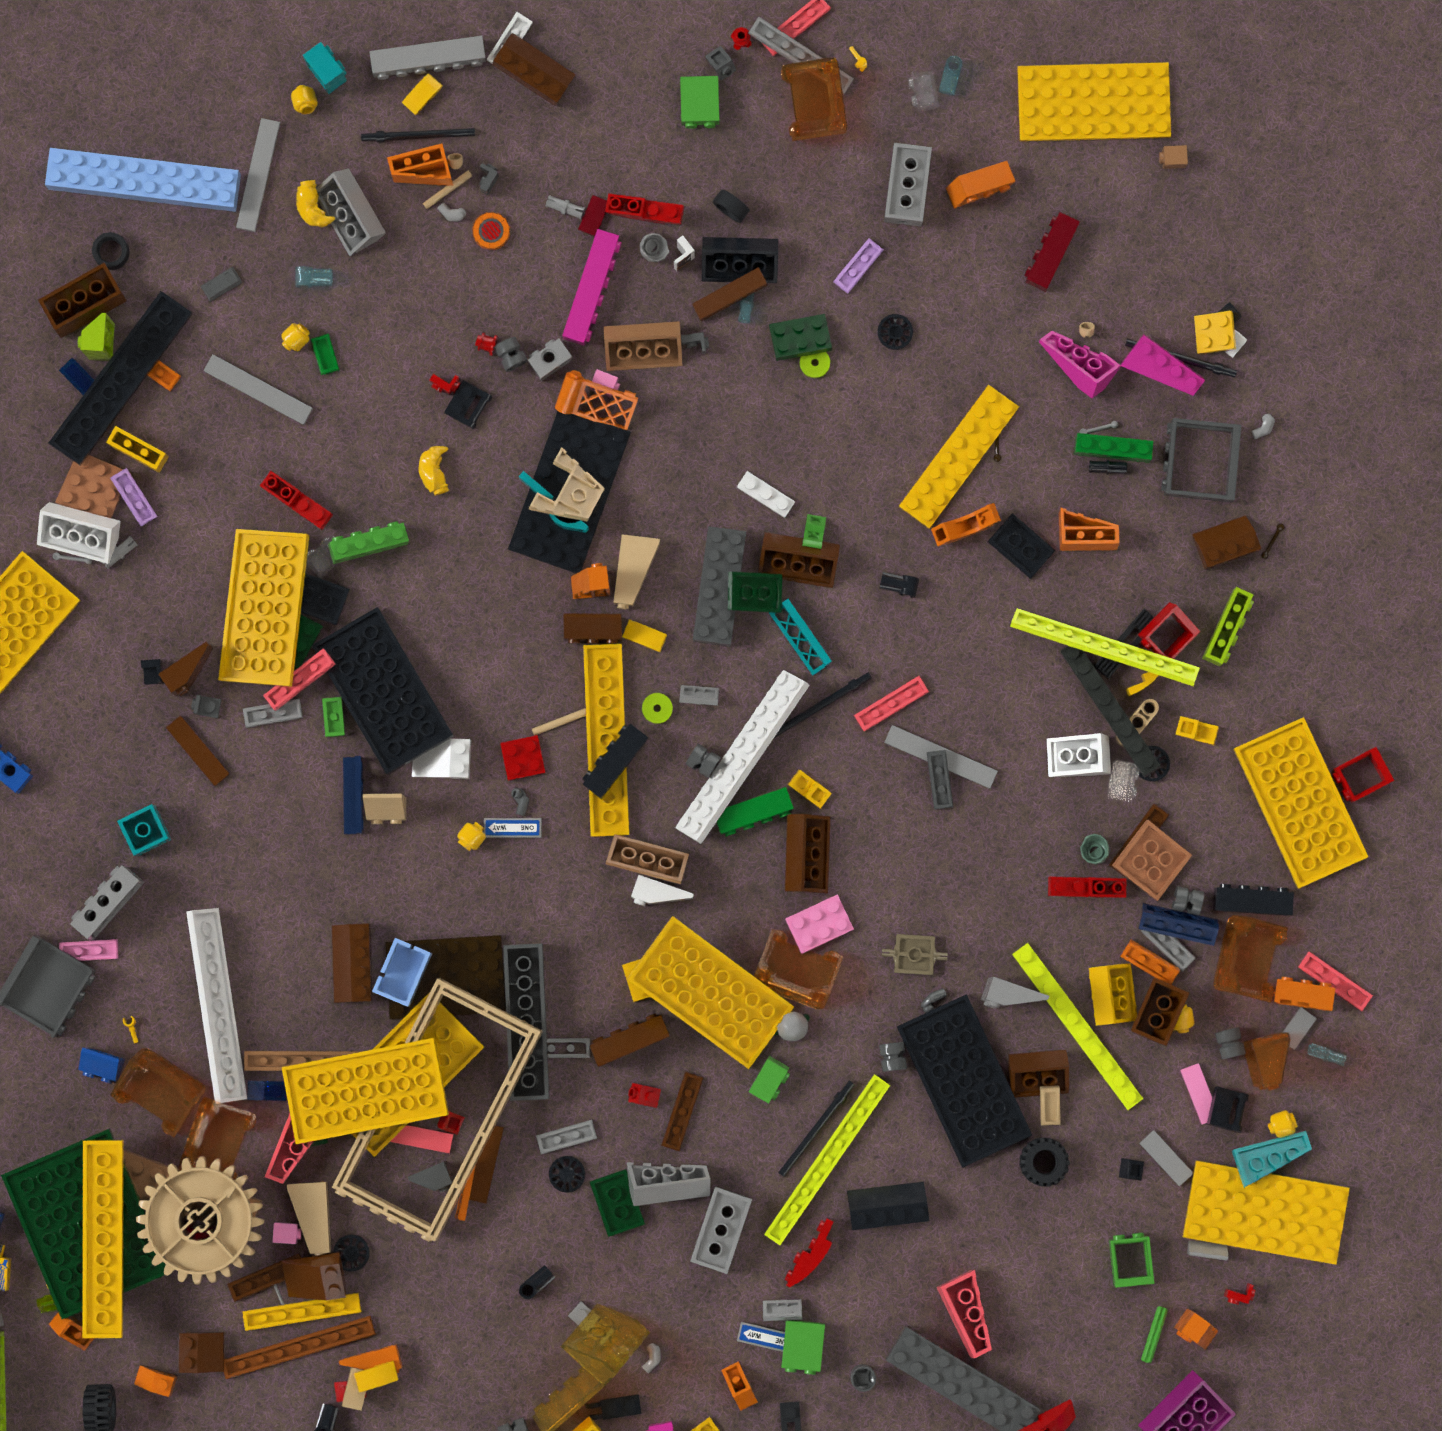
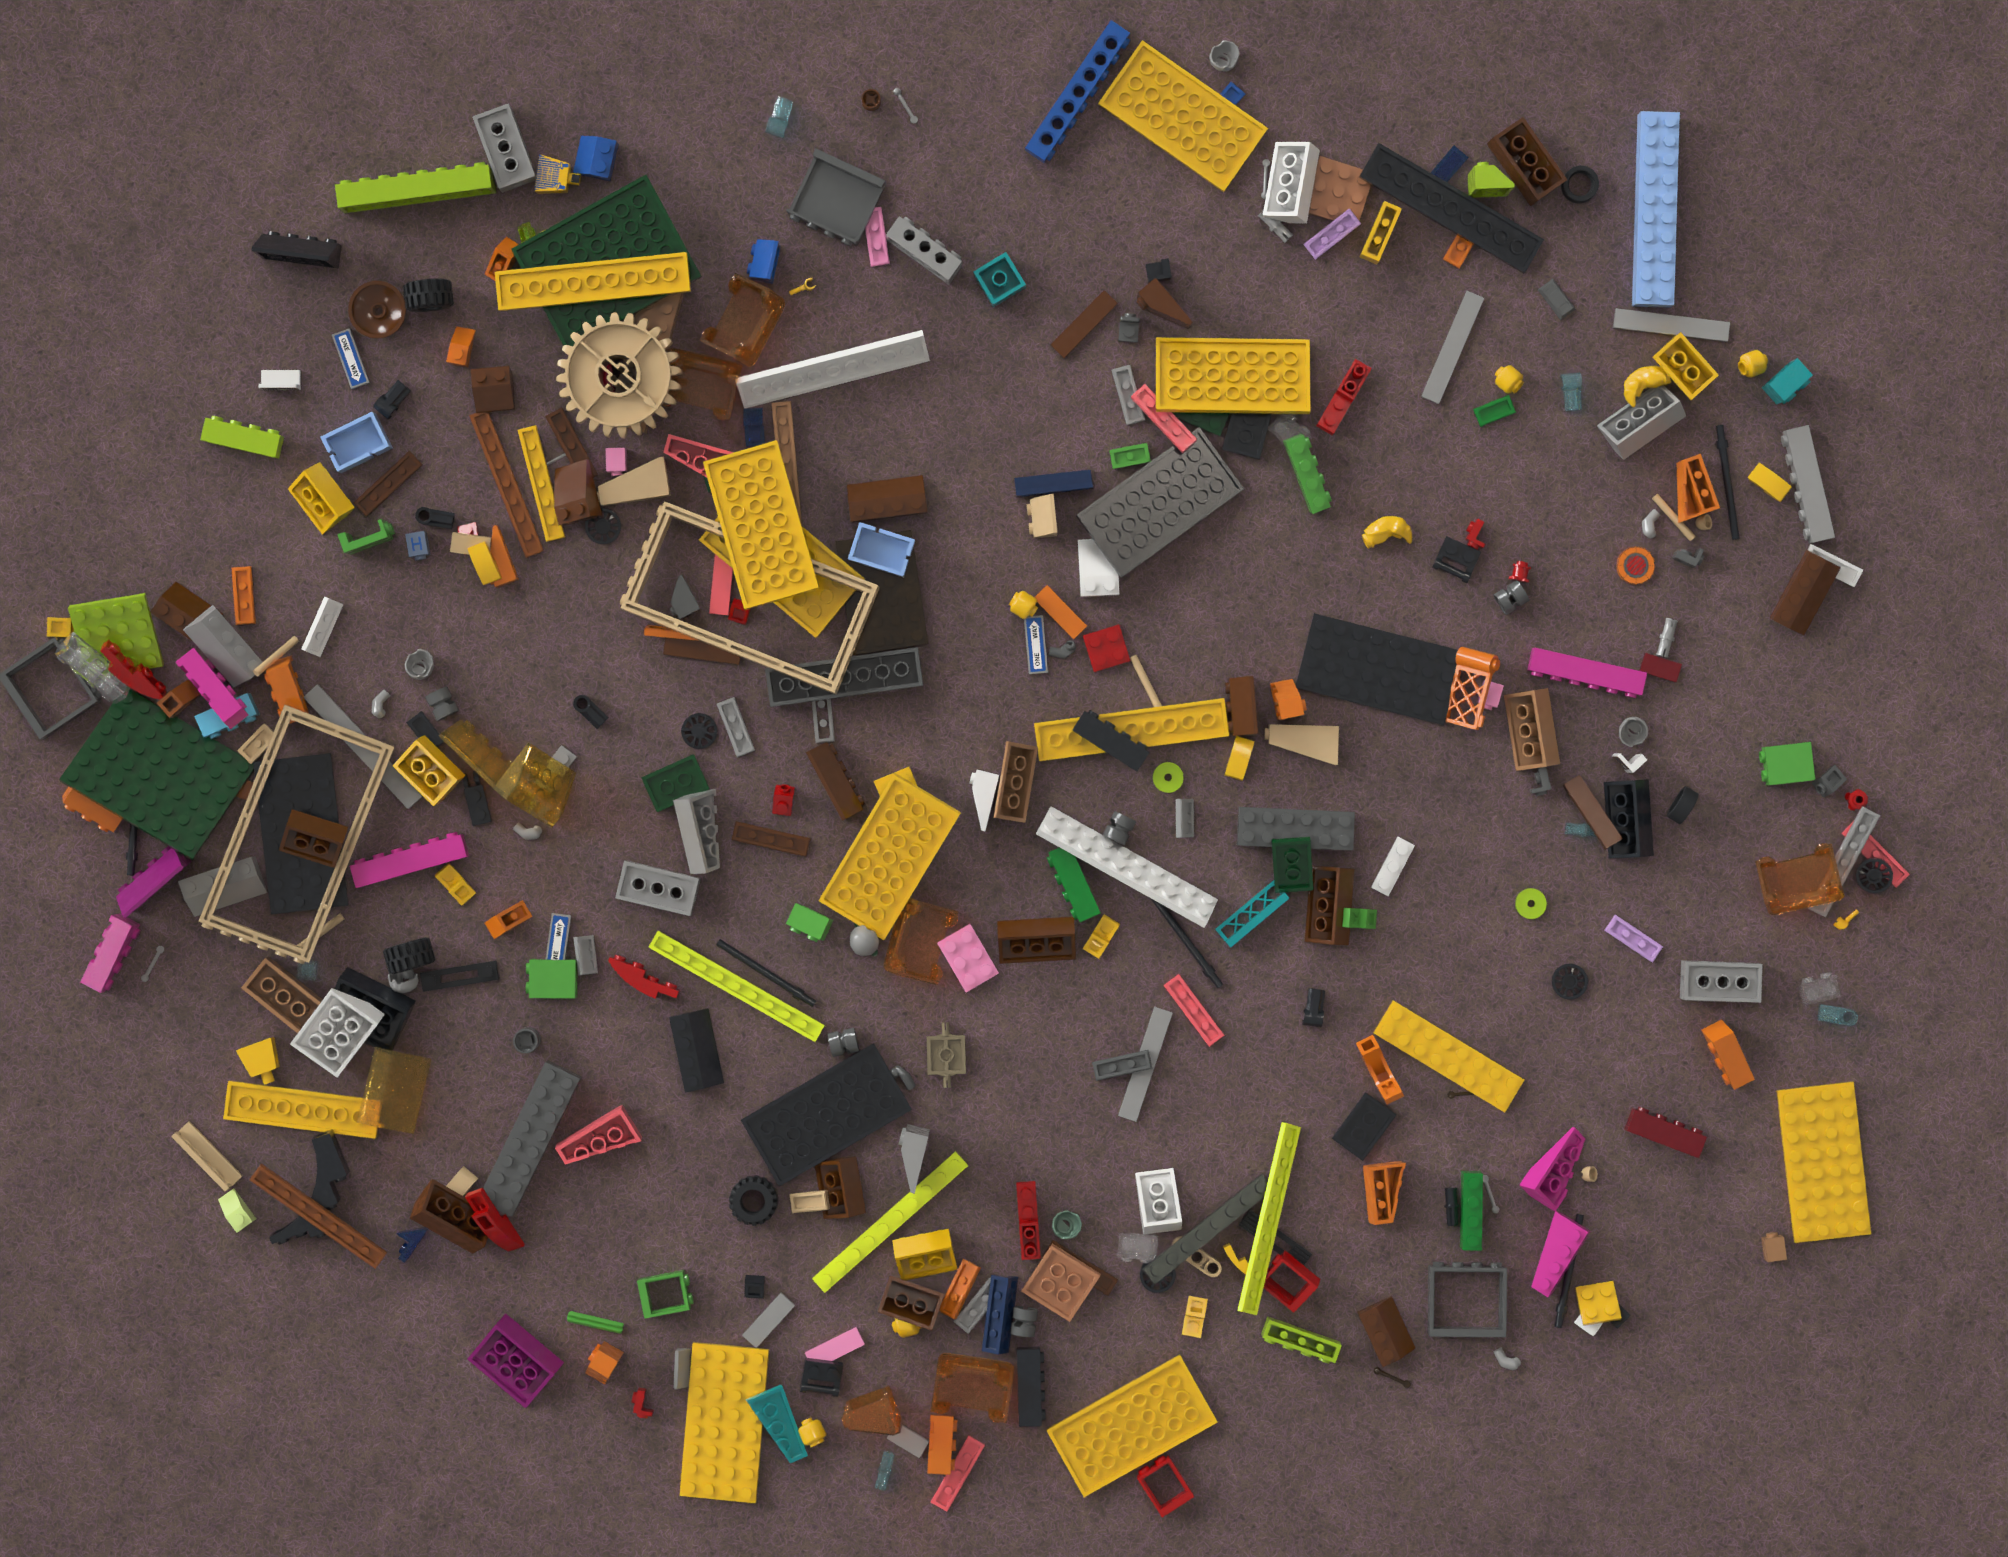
camera: 85 degrees right, 5 degrees up
(299, 164) = (1685, 366): none -> yellow slope
(482, 800) = (1060, 612): none -> orange tile
(545, 369) = (1499, 632): light grey brick -> none
(577, 495) = (1374, 678): tan wing -> none
(579, 526) = (1376, 638): teal piece -> none
(644, 210) = (1671, 718): red slope -> none
(800, 337) = (1555, 886): dark green plate -> none
(817, 27) = (1874, 875): none -> black wheel
(1230, 1043) = (886, 1374): dark grey wheel -> none

